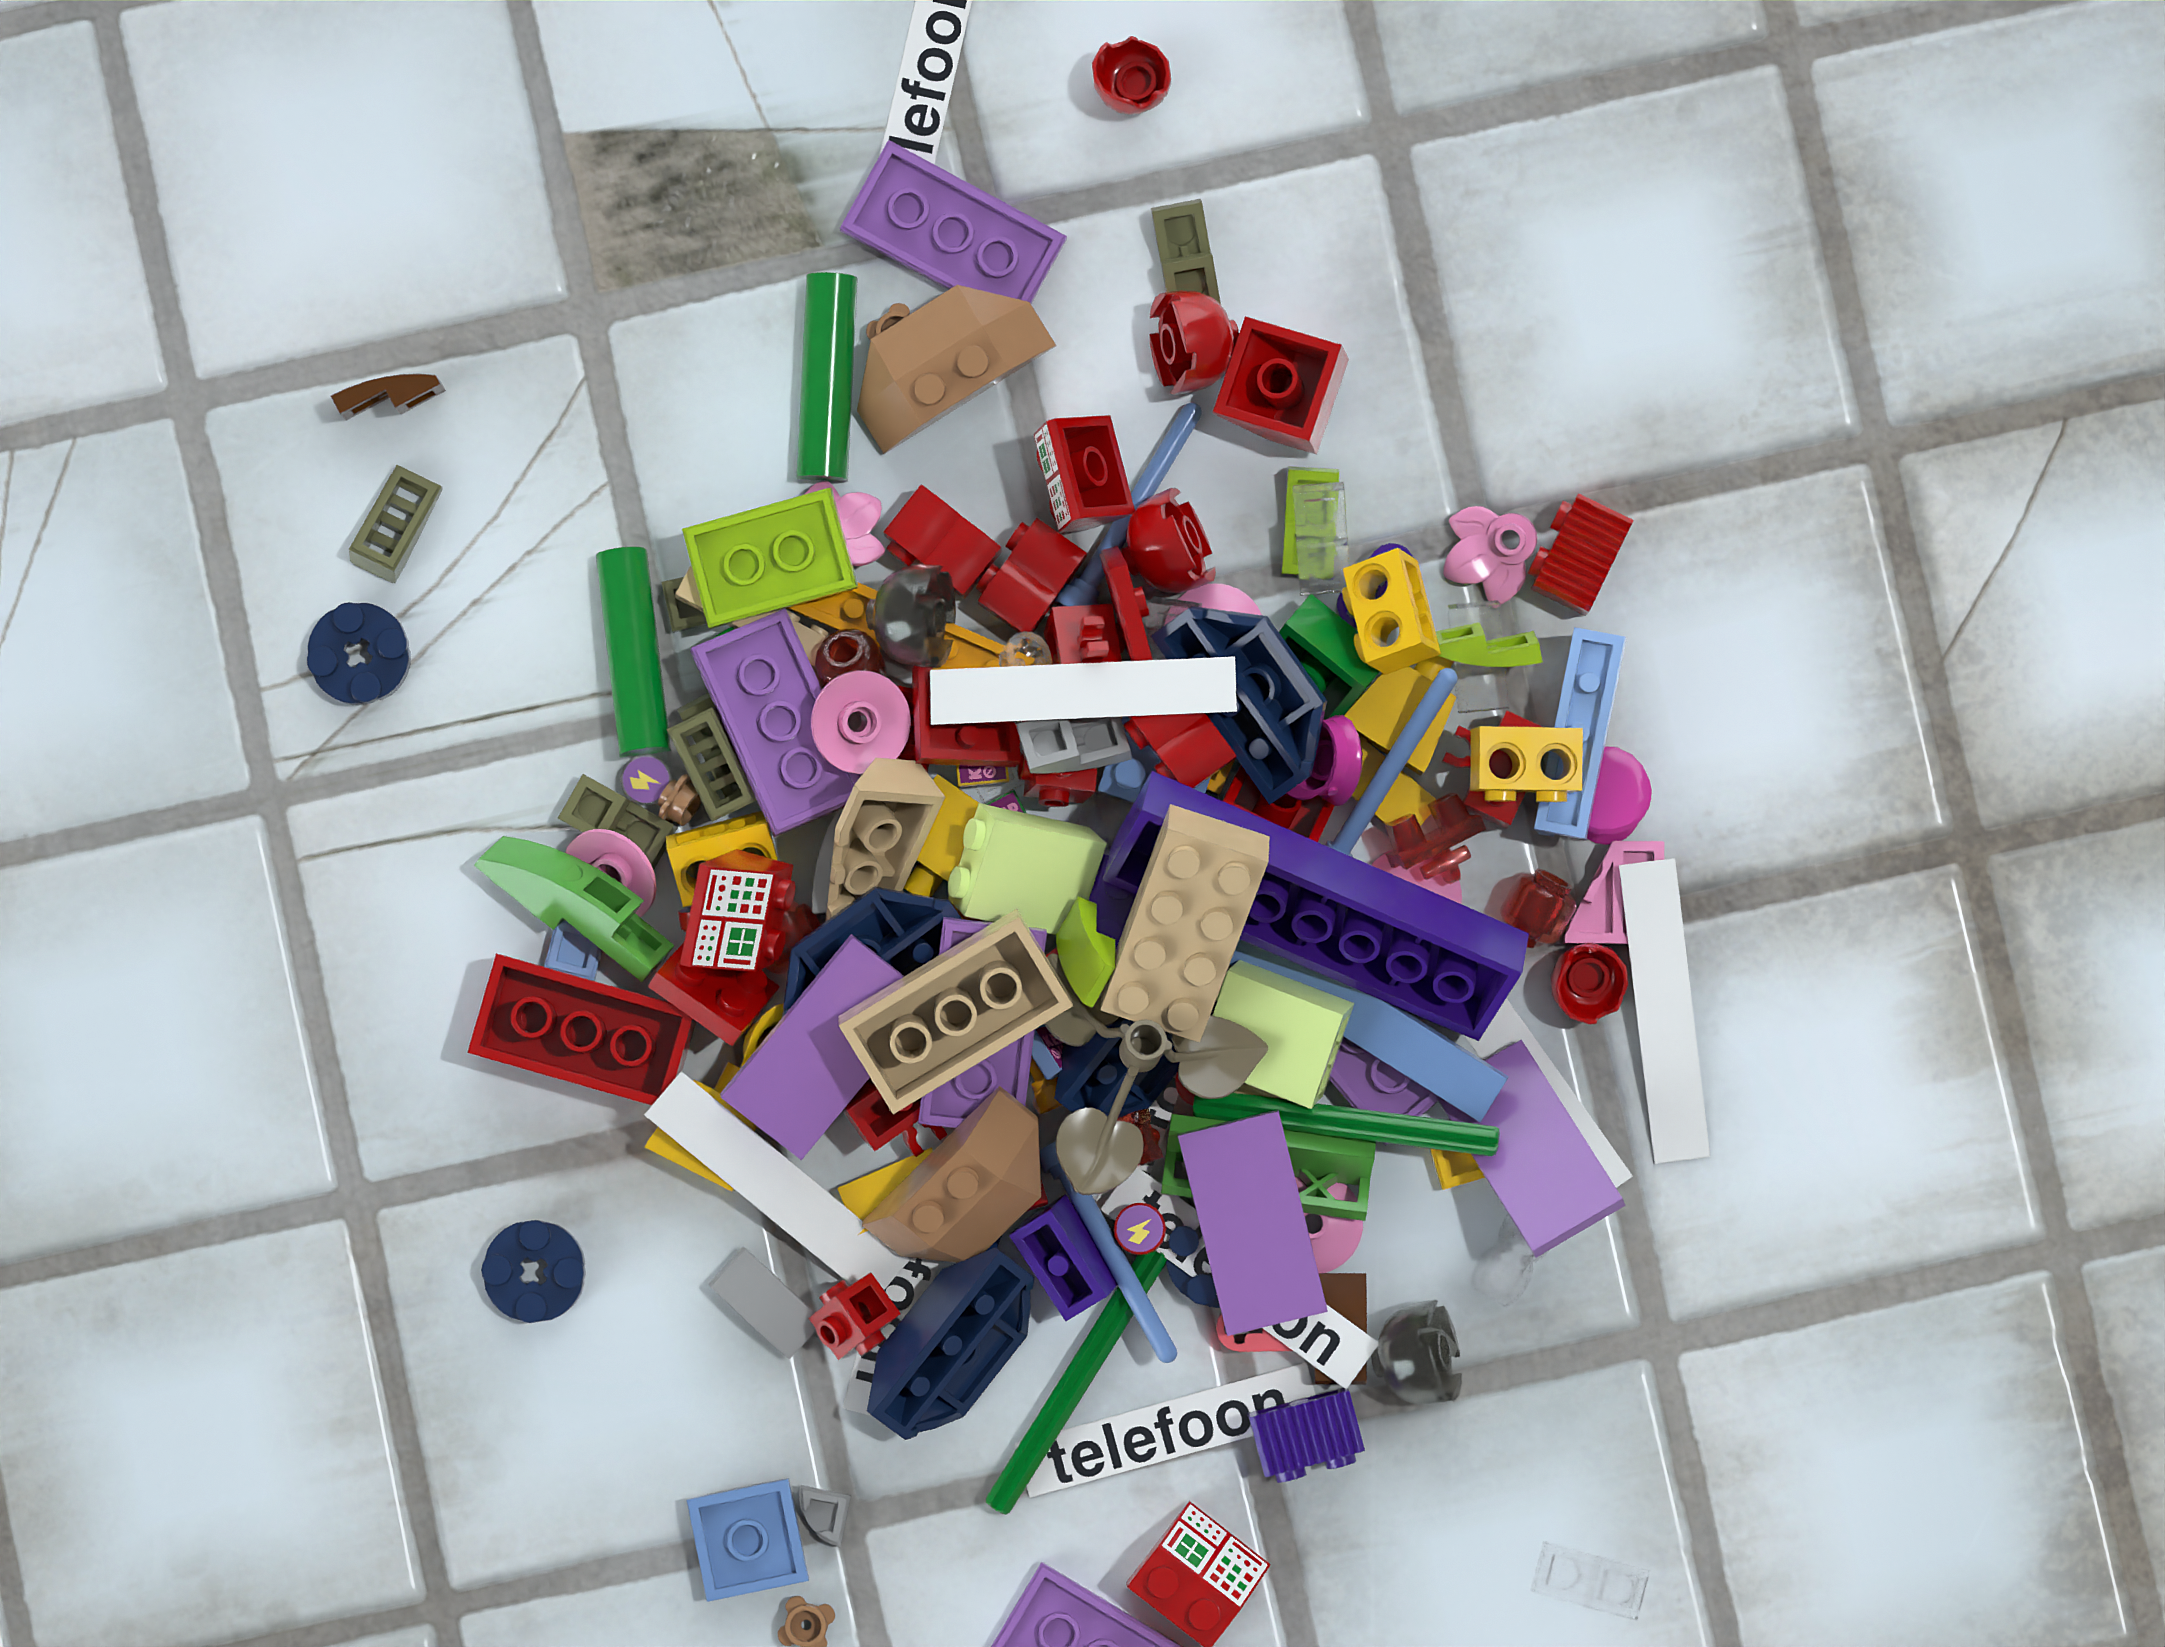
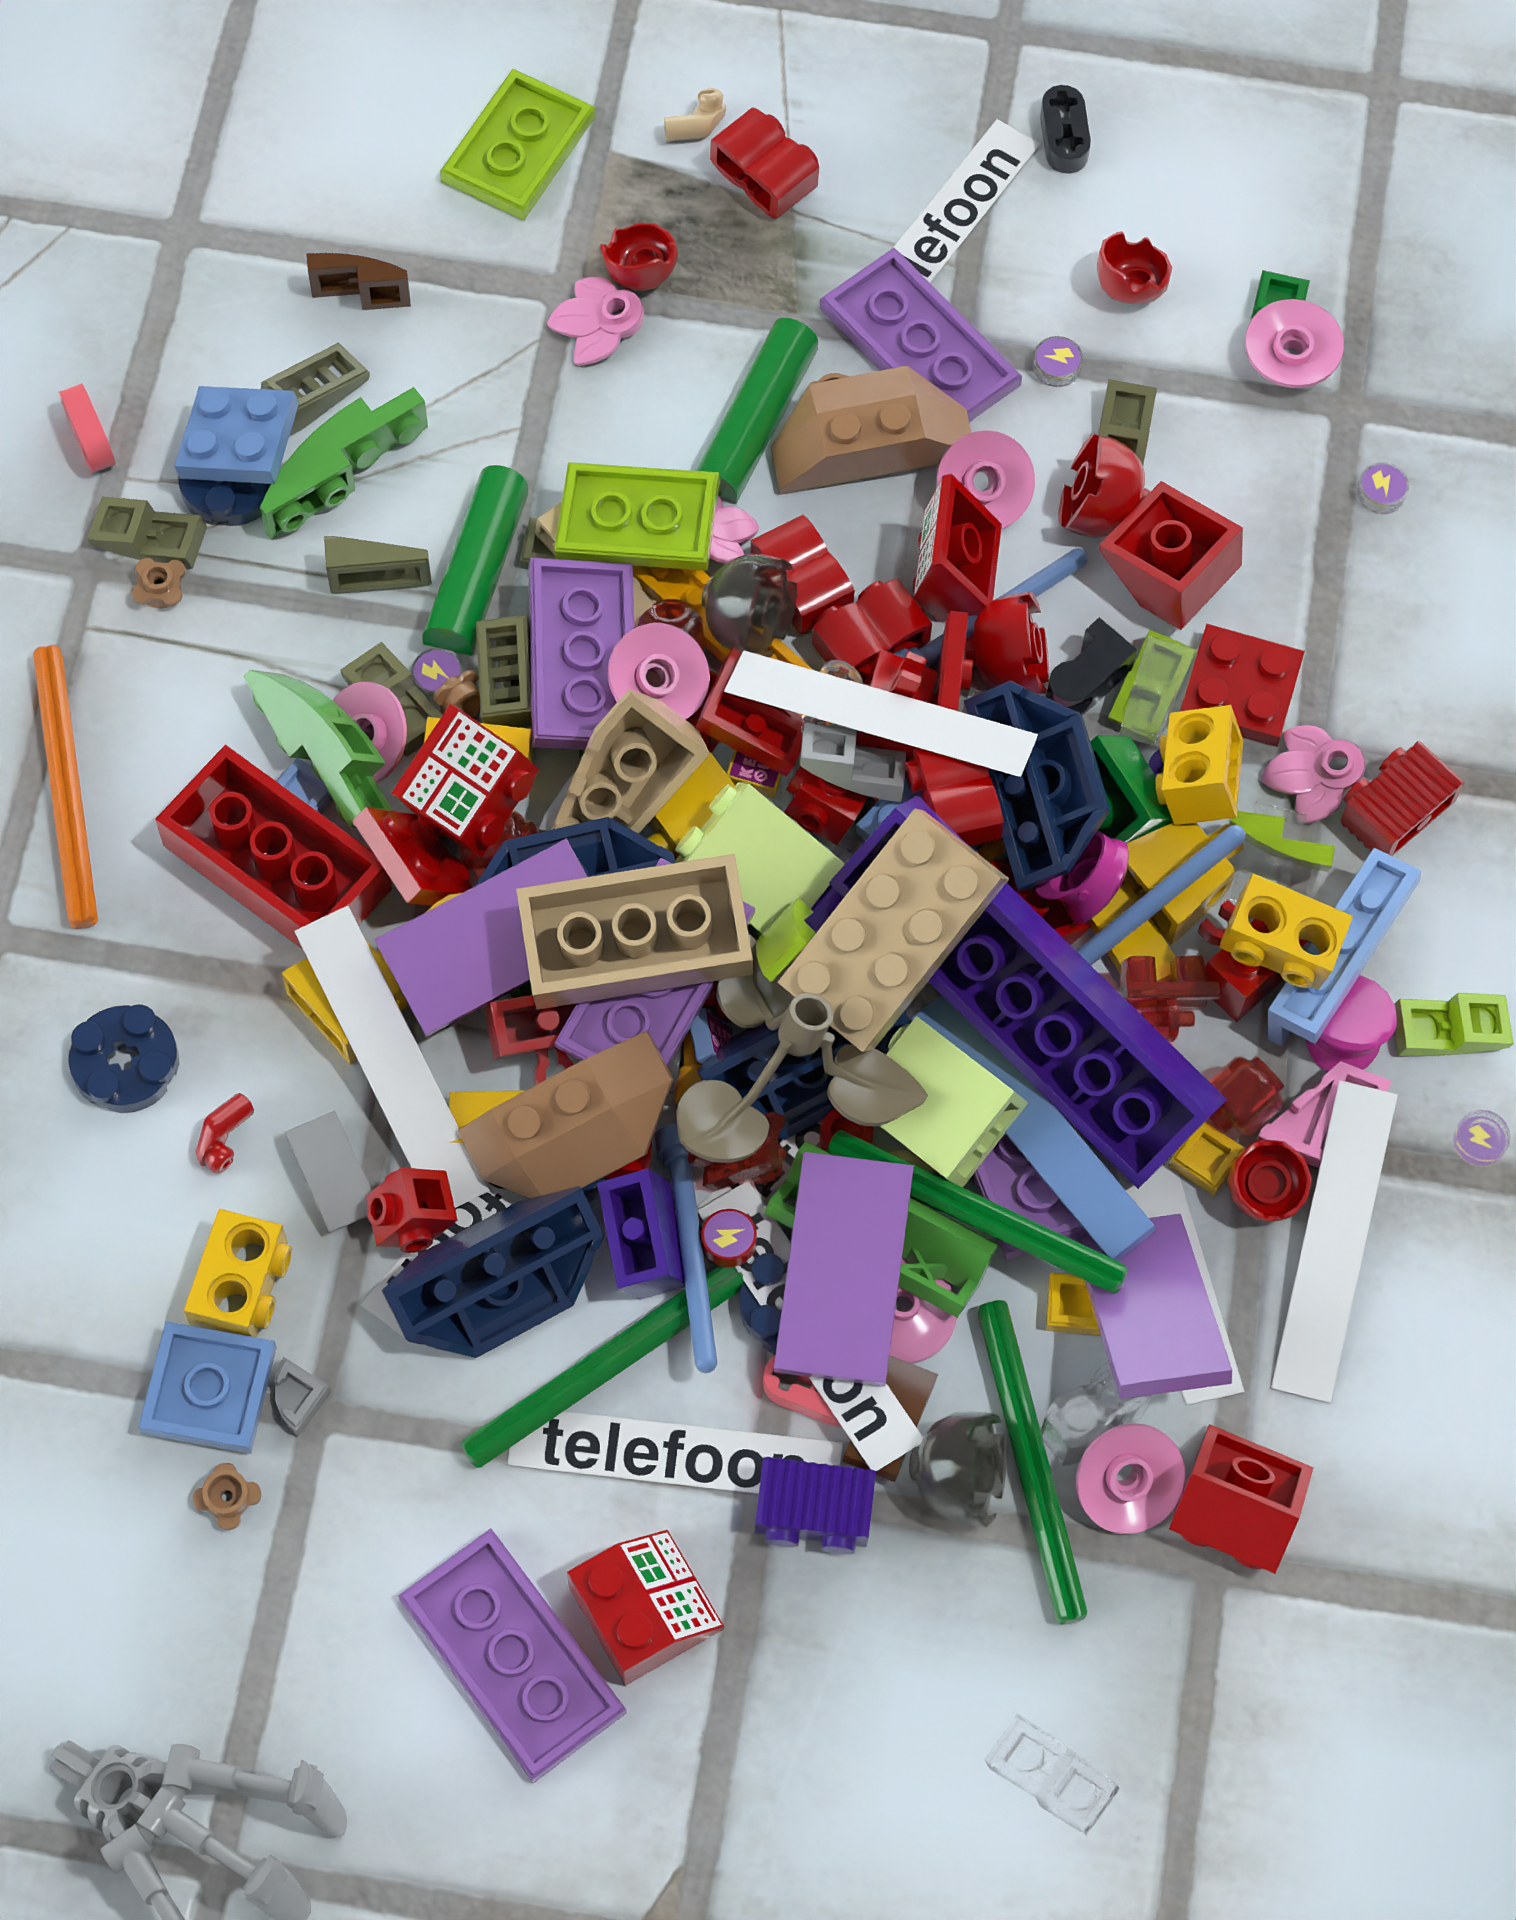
camera: 20 degrees right, 20 degrees down
(203, 660) = (87, 428): none -> coral beam
(310, 744) = (139, 532): none -> olive slope
(332, 787) = (160, 595): none -> medium nougat plate
(354, 620) = (236, 434): none -> medium blue plate
(356, 1031) = (65, 787): none -> orange axle
(444, 616) = (323, 465): none -> bright green slope
(471, 166) = (518, 144): none -> lime tile
(528, 701) = (372, 565): none -> olive slope
(626, 341) = (592, 319): none -> bright pink plate
(641, 66) = (702, 119): none -> tan arm
(648, 255) = (640, 256): none -> red hair
(648, 1304) = (215, 1131): none -> red arm
(716, 1434) = (224, 1274): none -> yellow brick
(725, 95) = (765, 162): none -> red brick
(1092, 385) = (1004, 463): none -> bright pink dish
(1093, 202) = (1057, 361): none -> tile
(1242, 555) = (1095, 671): none -> black leg
(1282, 42) = (1278, 287): none -> green tile
(1322, 71) = (1299, 327): none -> bright pink dish
(1393, 485) = (1248, 675): none -> red plate
(1452, 218) = (1382, 488): none -> tile
(1474, 1315) = (1032, 1463): none -> green axle
(1535, 979) = (1206, 1158): none -> yellow tile
(1565, 1303) = (1147, 1492): none -> bright pink dish
(1665, 1280) = (1242, 1499): none -> red slope
(1699, 757) = (1453, 1027): none -> lime slope
(1760, 856) = (1481, 1138): none -> clear tile

